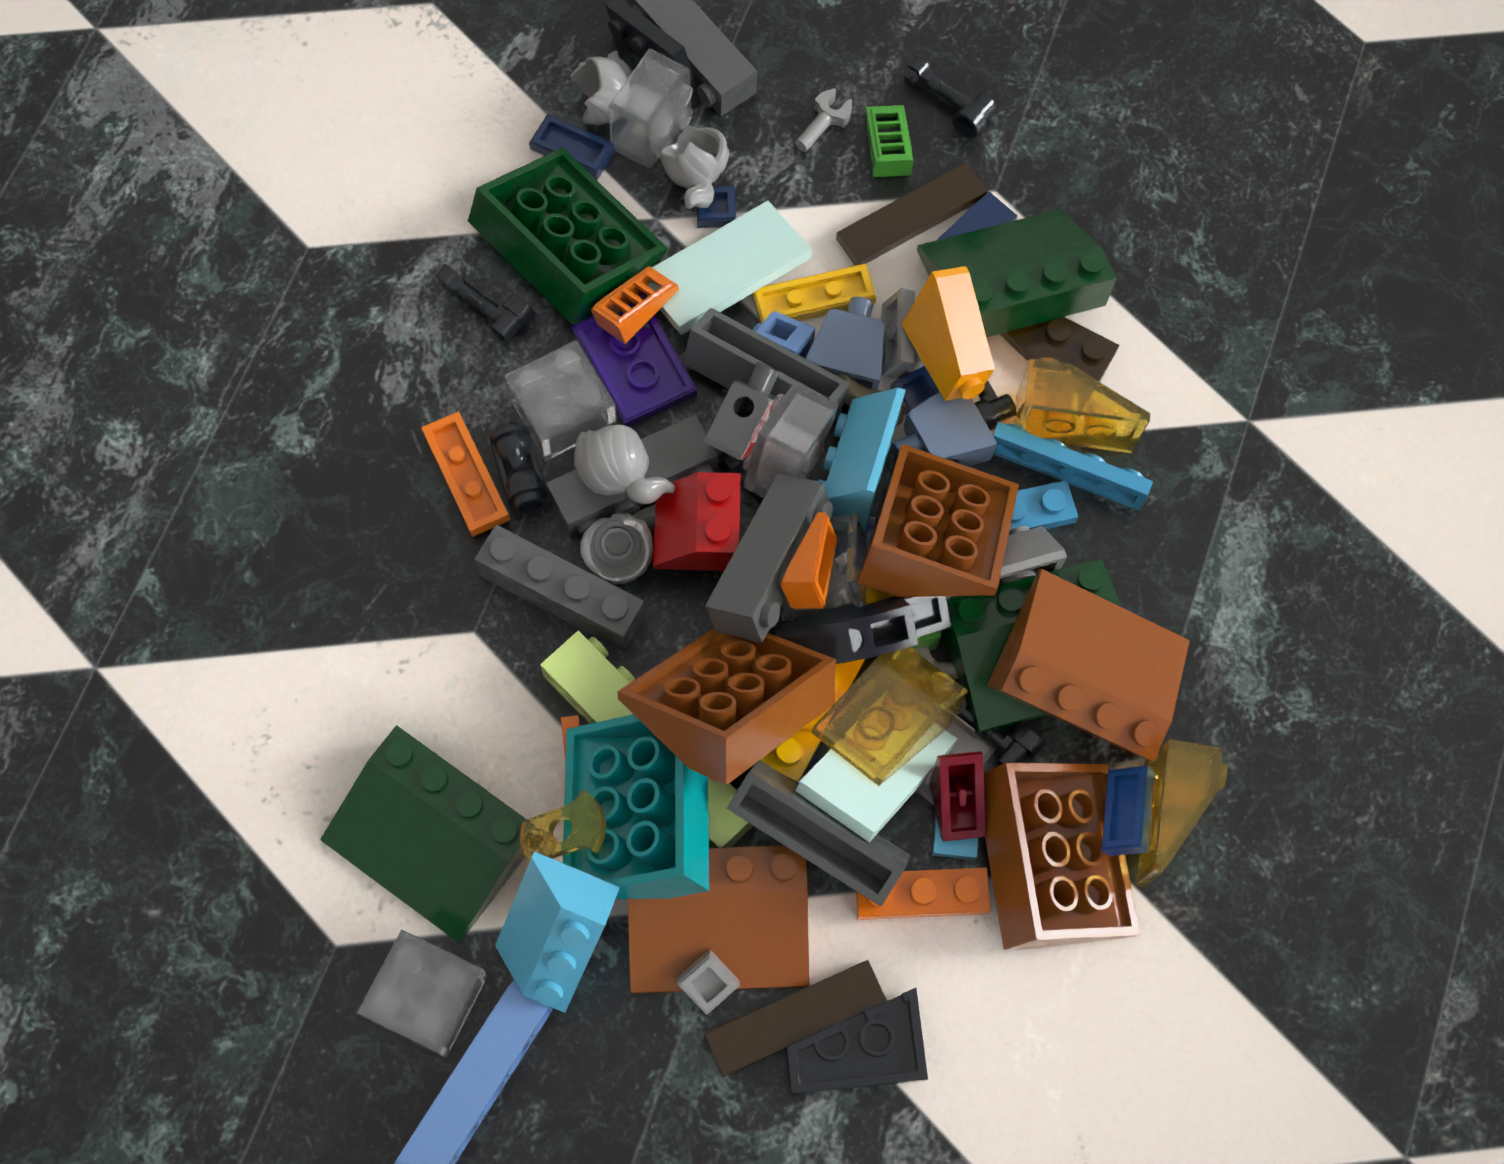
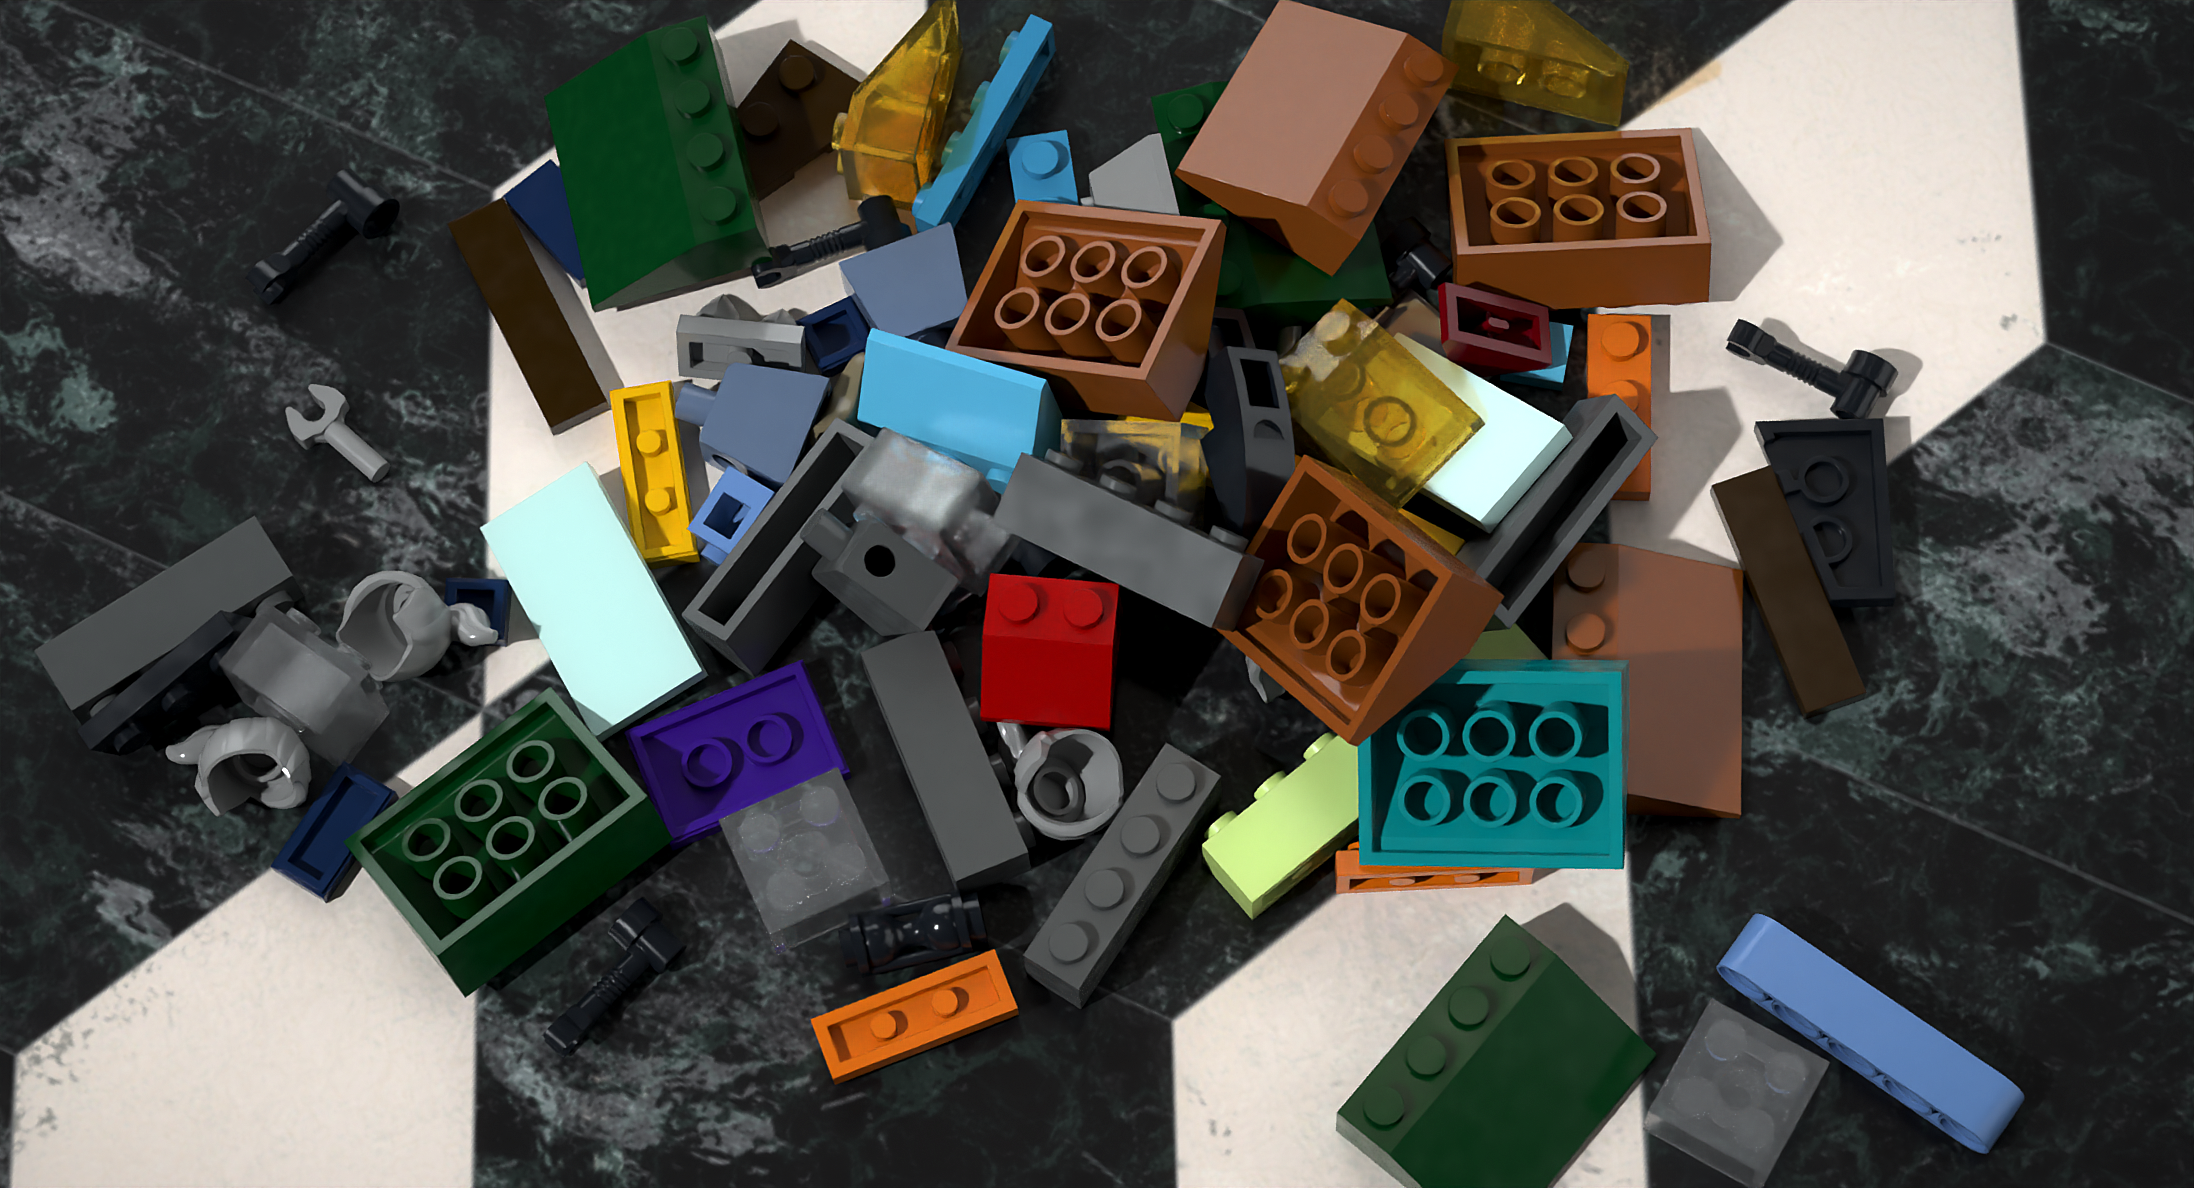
camera: 75 degrees left, 0 degrees up
(554, 929) = (1669, 883): medium azure slope -> none
(587, 829) = (1518, 823): clear yellow piece -> none
(615, 463) = (954, 759): light grey hair -> none
(634, 318) = (687, 767): orange slope -> none
(707, 981) = (1734, 701): light grey tile -> none
(810, 568) = (1173, 482): orange slope -> none
(889, 164) = (408, 313): bright green slope -> none
(950, 334) = (784, 258): light orange slope -> none
(951, 1059) = (1854, 388): none -> black brick
(1128, 811) = (1522, 114): blue tile -> none

